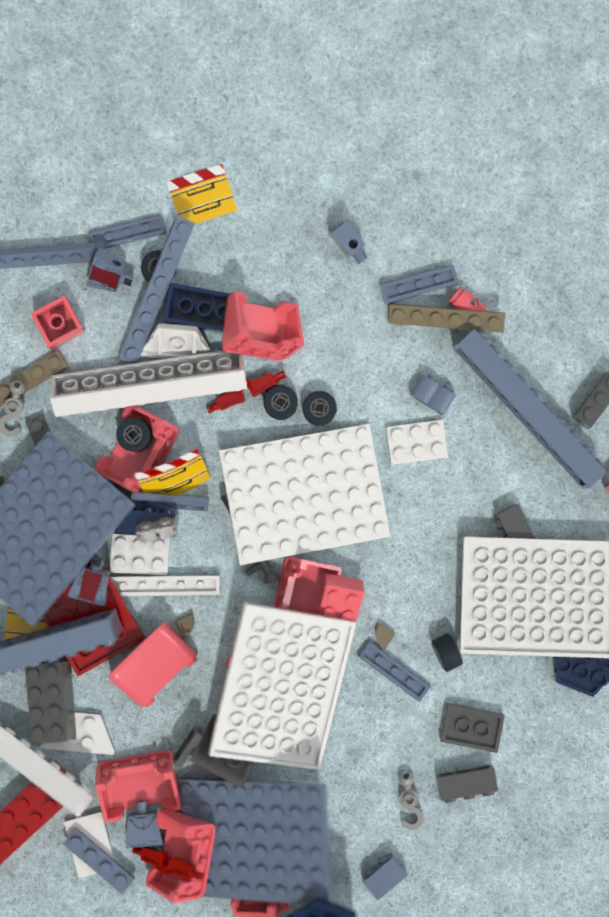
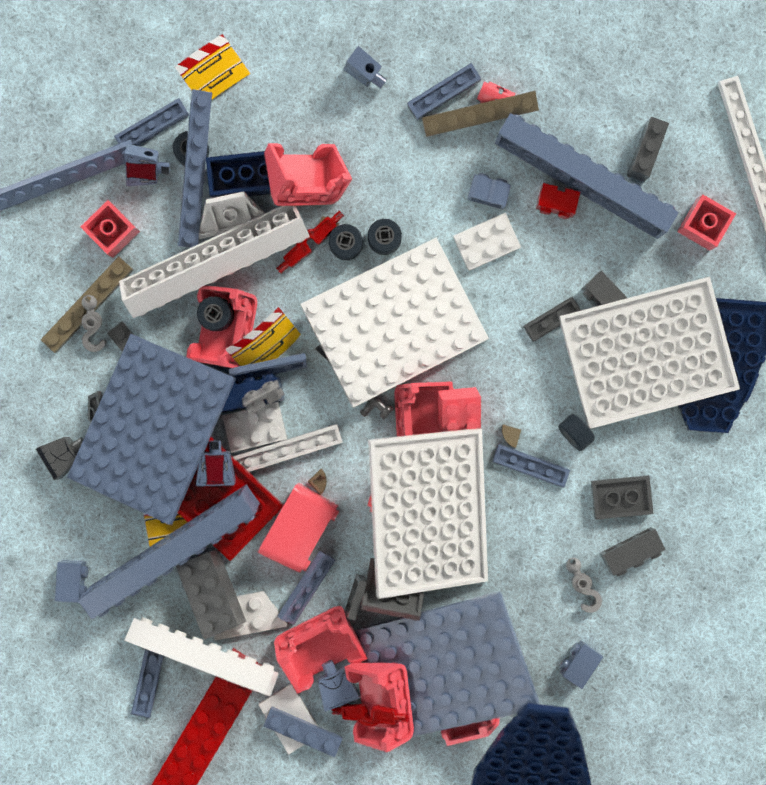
camera: 10 degrees left, 0 degrees up
(143, 724) = (306, 587): none -> sand blue plate
(454, 536) = (550, 320): none -> dark grey tile
(500, 427) = (558, 202): none -> red brick

